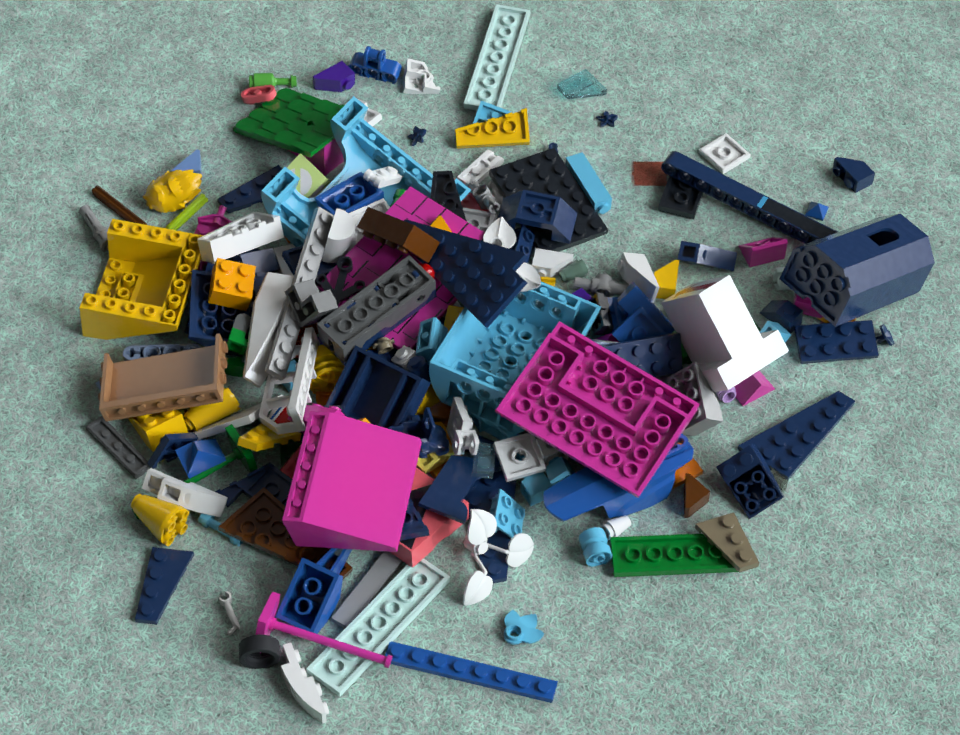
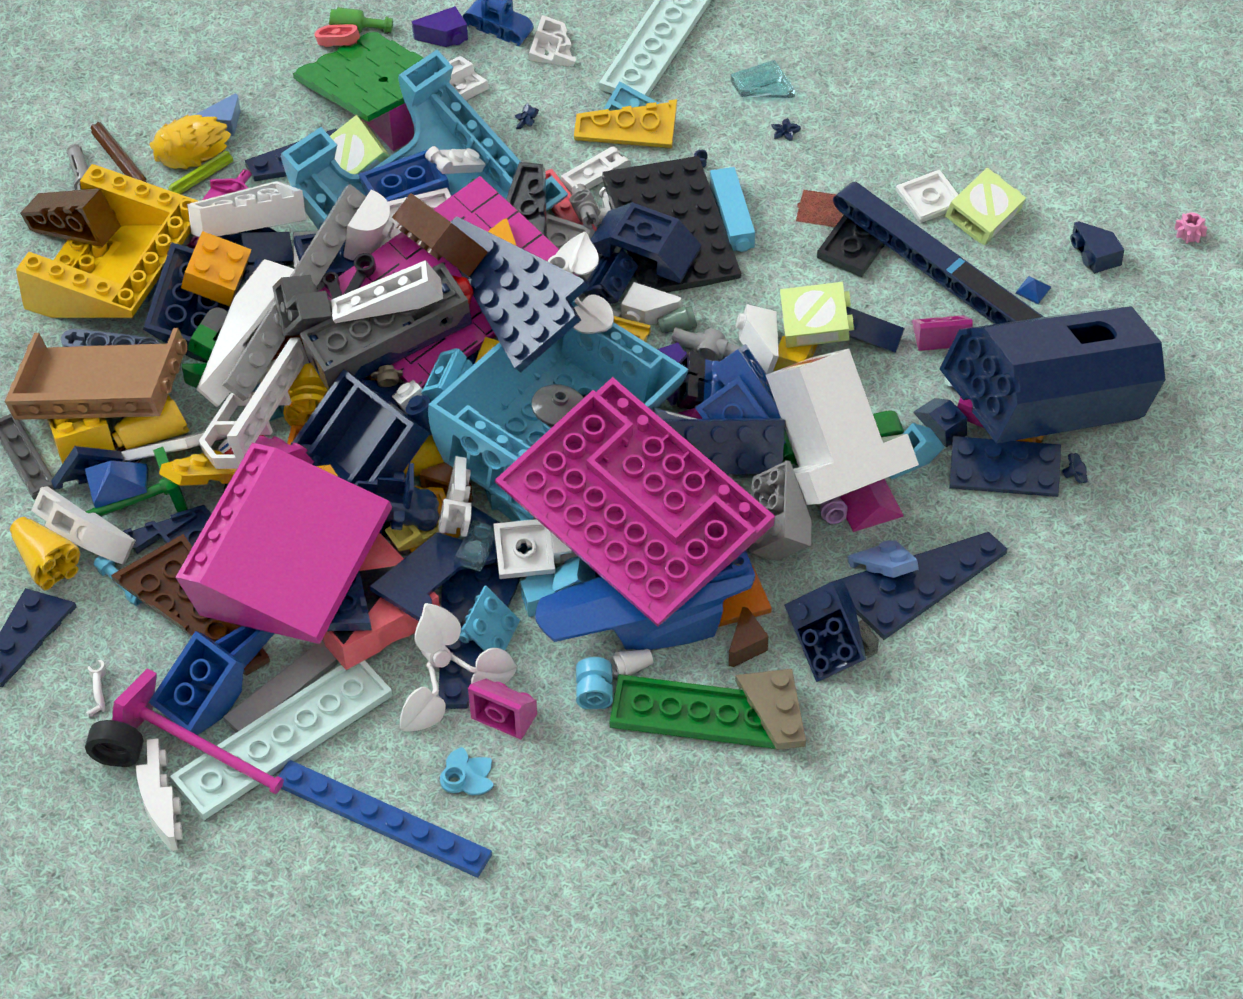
camera: 15 degrees right, 0 degrees up
(103, 260) = (72, 216): none -> reddish brown wedge
(381, 284) = (396, 293): none -> white slope
(519, 347) = (554, 402): none -> dark grey dish
(535, 576) = (502, 707): none -> dark pink slope
(677, 252) = (816, 314): none -> yellowish green brick
(768, 155) = (985, 206): none -> yellowish green brick
(774, 422) = (887, 558): none -> medium blue wing
(914, 150) = (1191, 227): none -> bright pink gear

